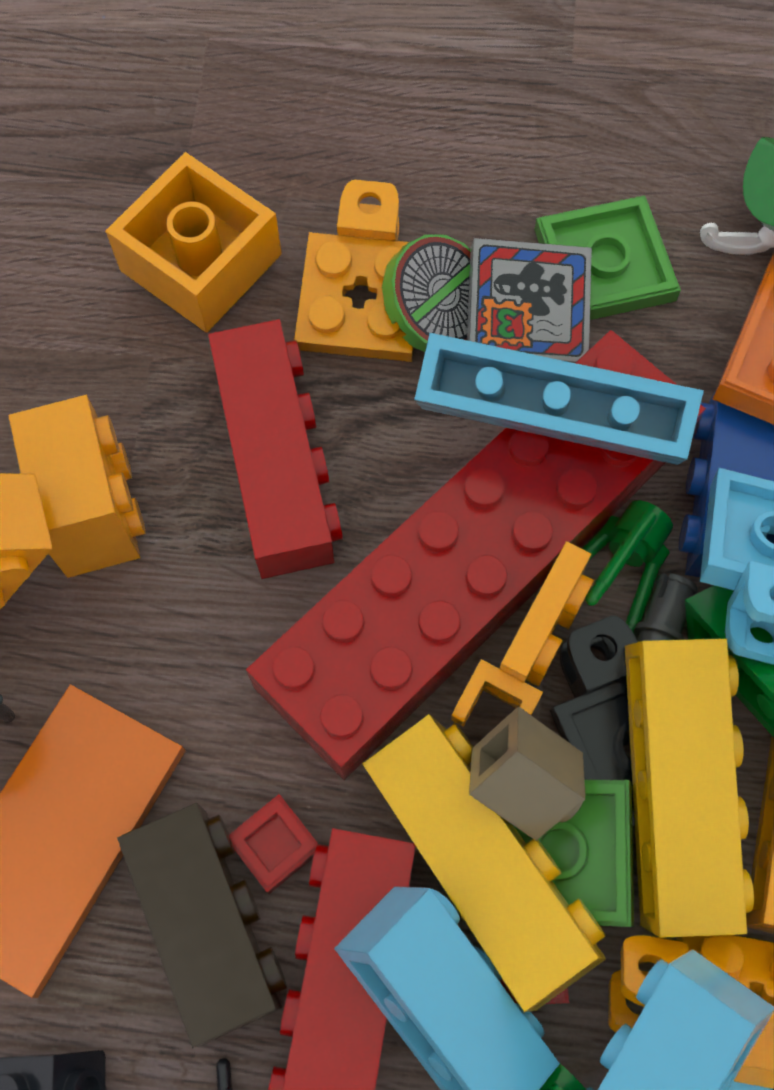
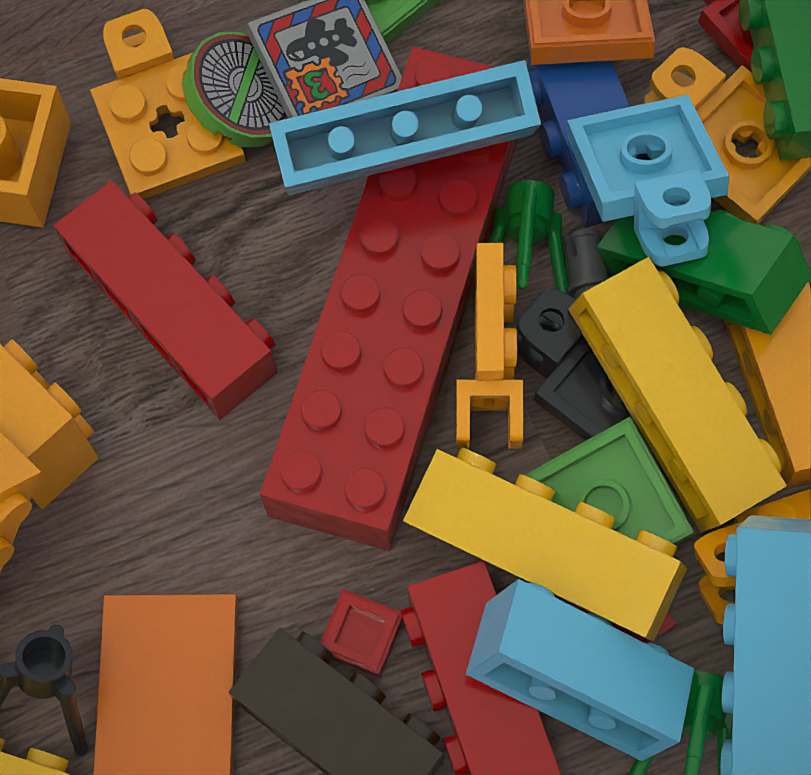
camera: 25 degrees left, 0 degrees up
(527, 774) = (546, 451): dark tan brick -> none

